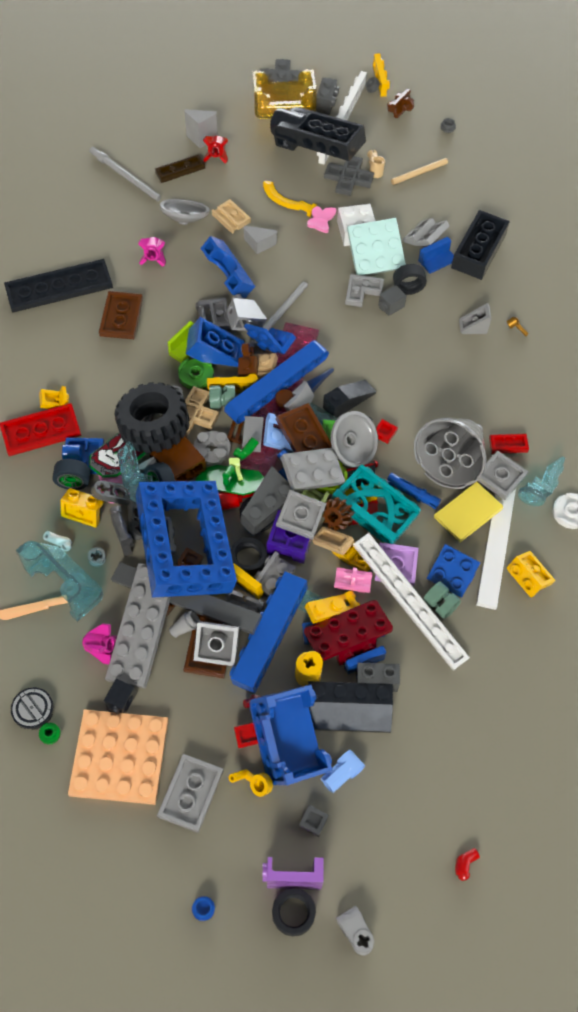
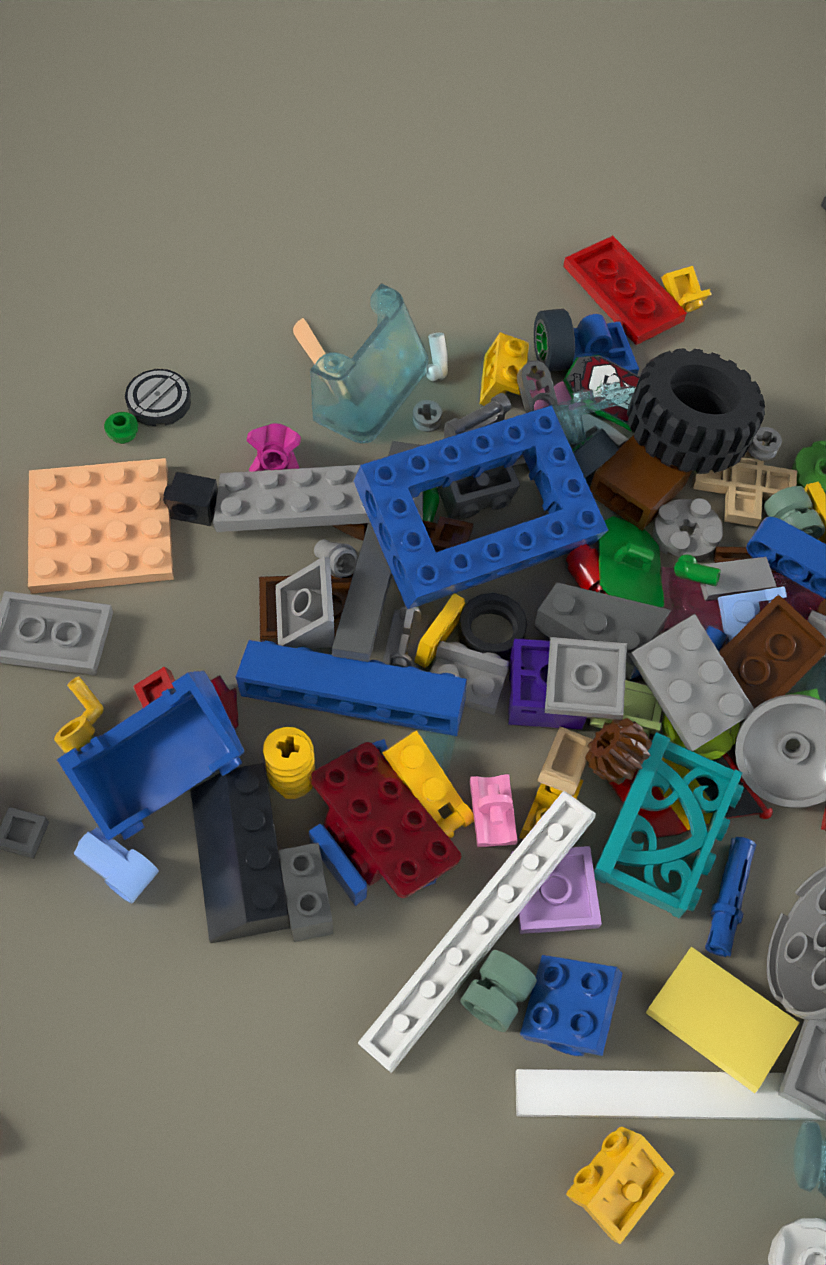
camera: 75 degrees right, 0 degrees up
(236, 463) = (661, 564): yellowish green hand -> none

